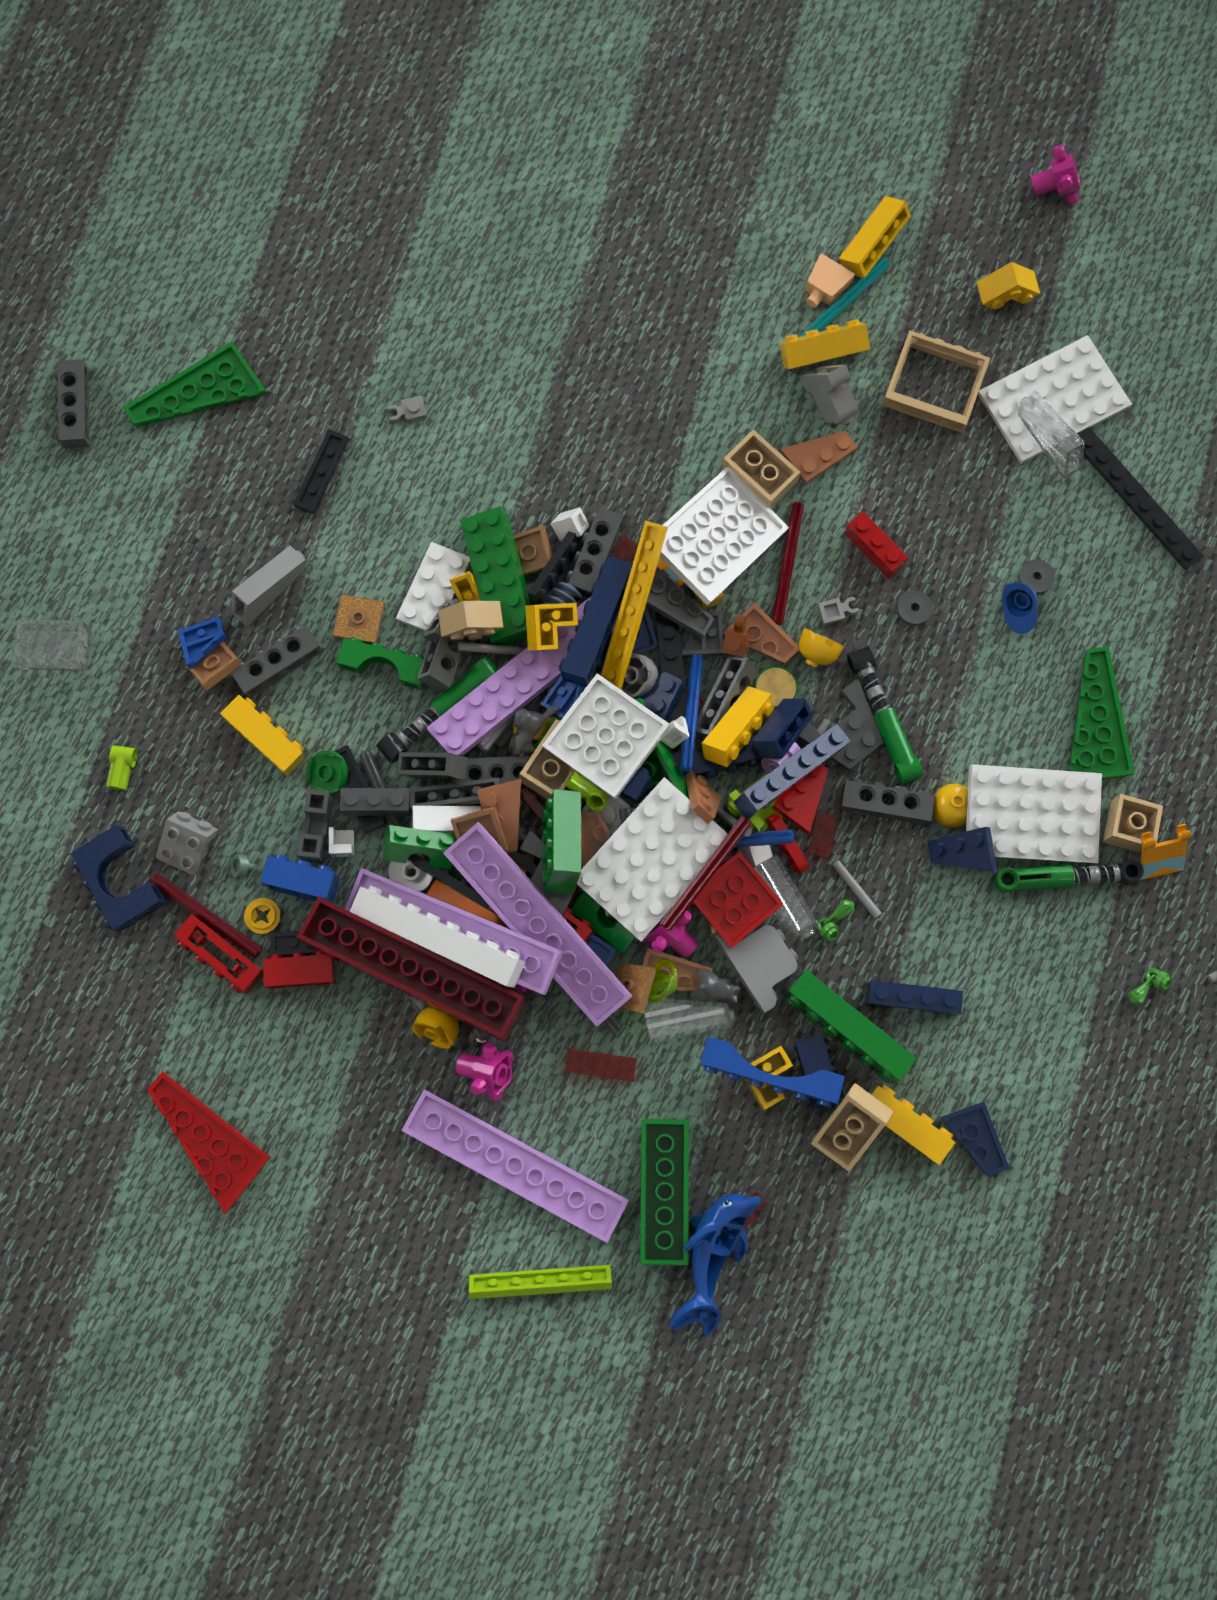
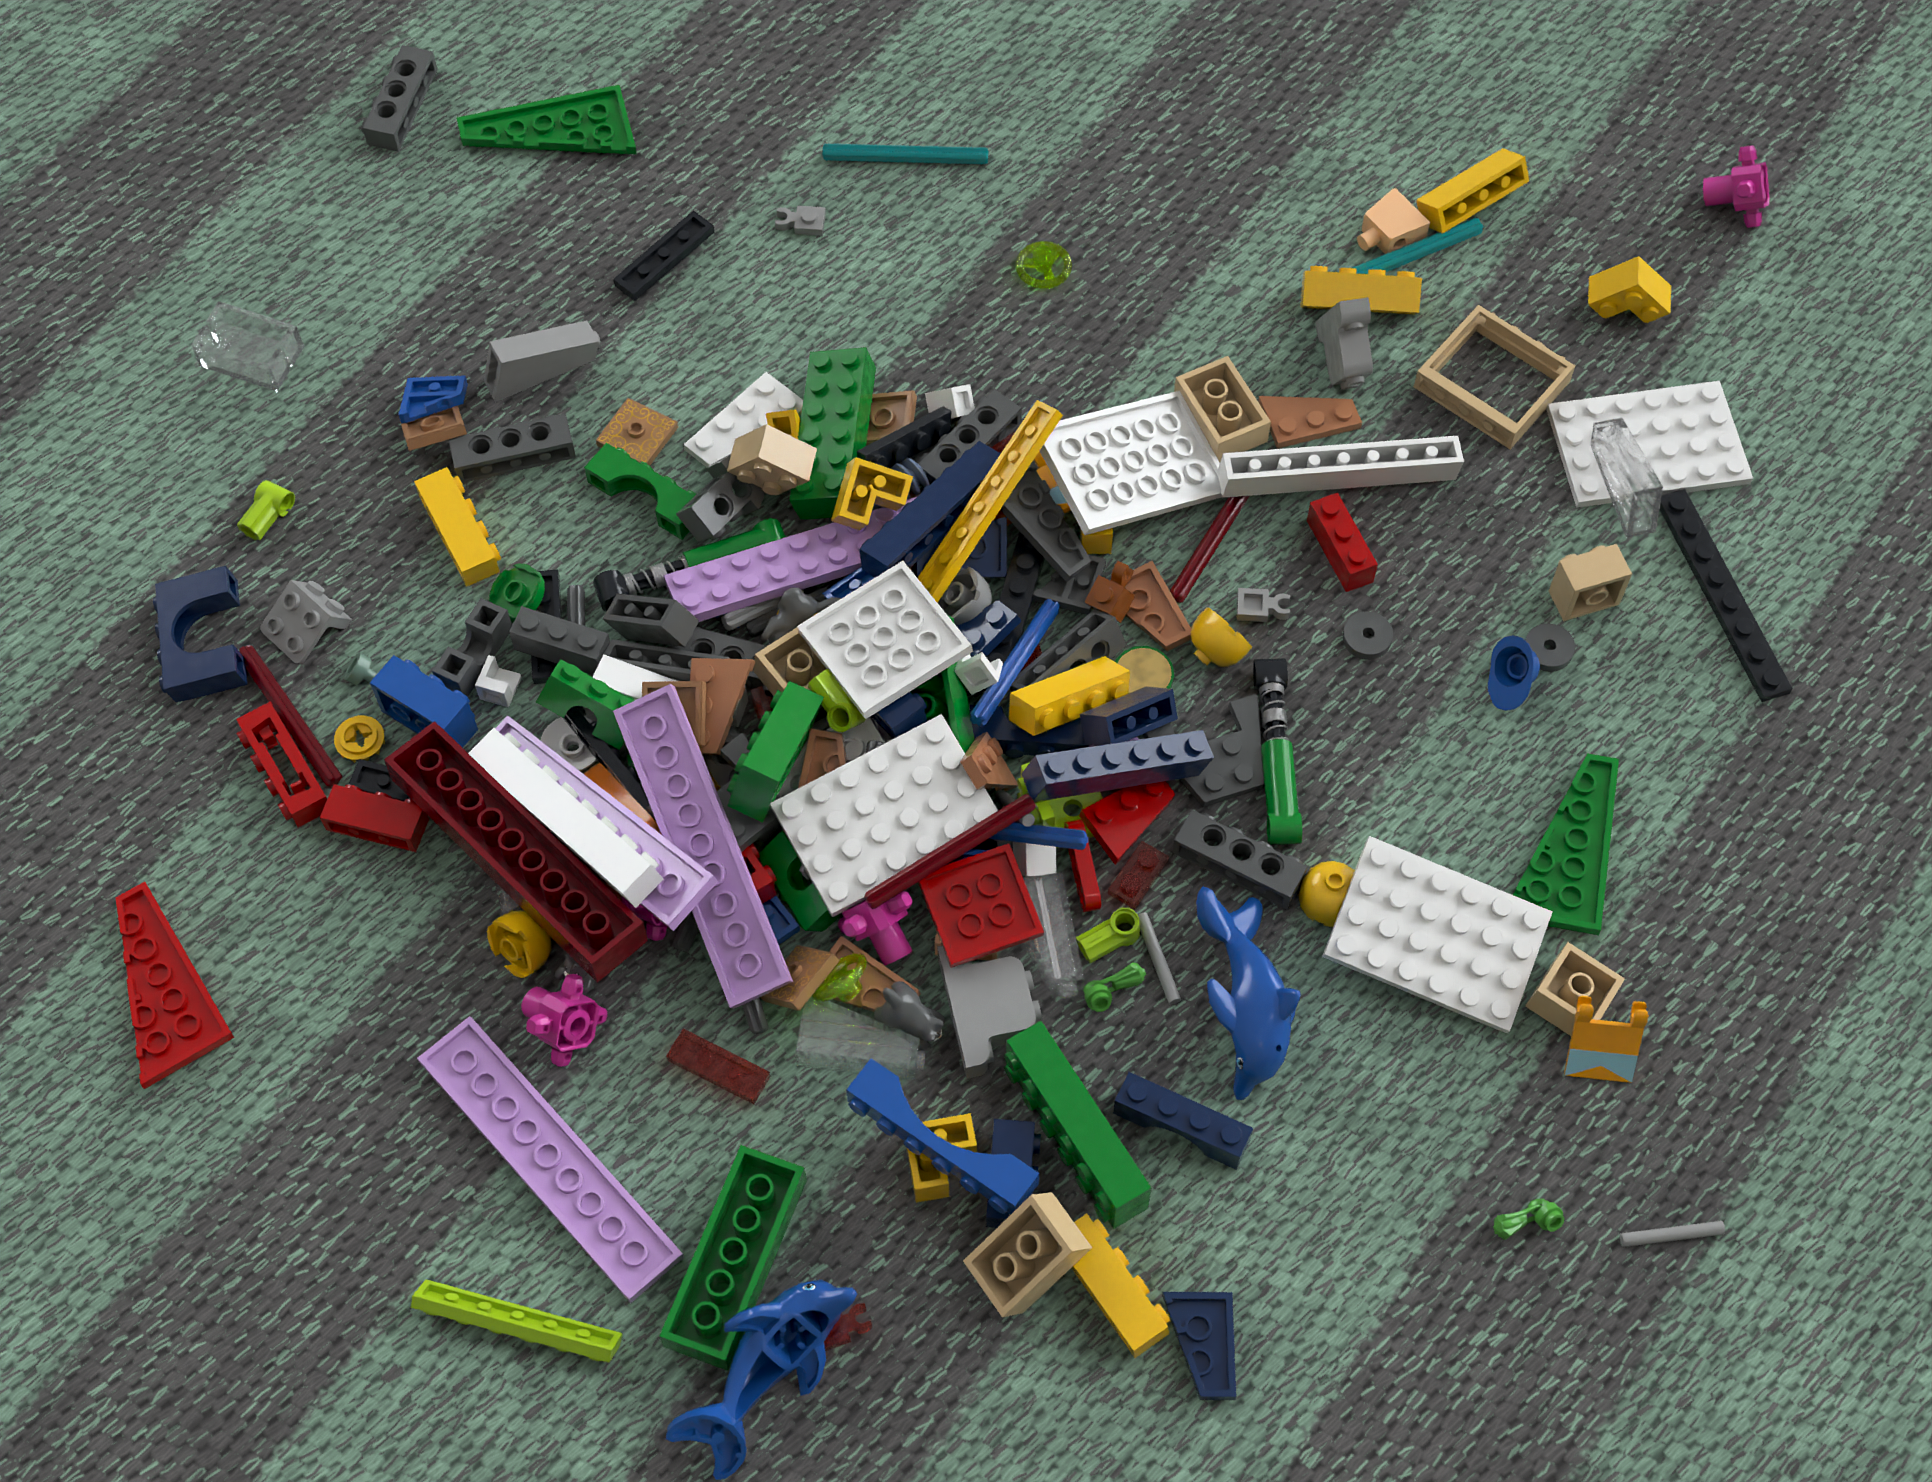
camera: 20 degrees right, 15 degrees down
(461, 331) = (905, 153): none -> teal axle
(489, 648) = (782, 509): light grey bar -> none
(594, 381) = (1043, 258): none -> clear neon green piece
(820, 887) = (1107, 937): none -> lime piece
(857, 489) = (1340, 466): none -> white brick
(940, 905) = (1259, 1005): none -> blue animal
(966, 850) = (1322, 945): dark blue wing -> none
(1051, 523) = (1590, 581): none -> tan brick
(1066, 876) = (1456, 1032): piece -> none

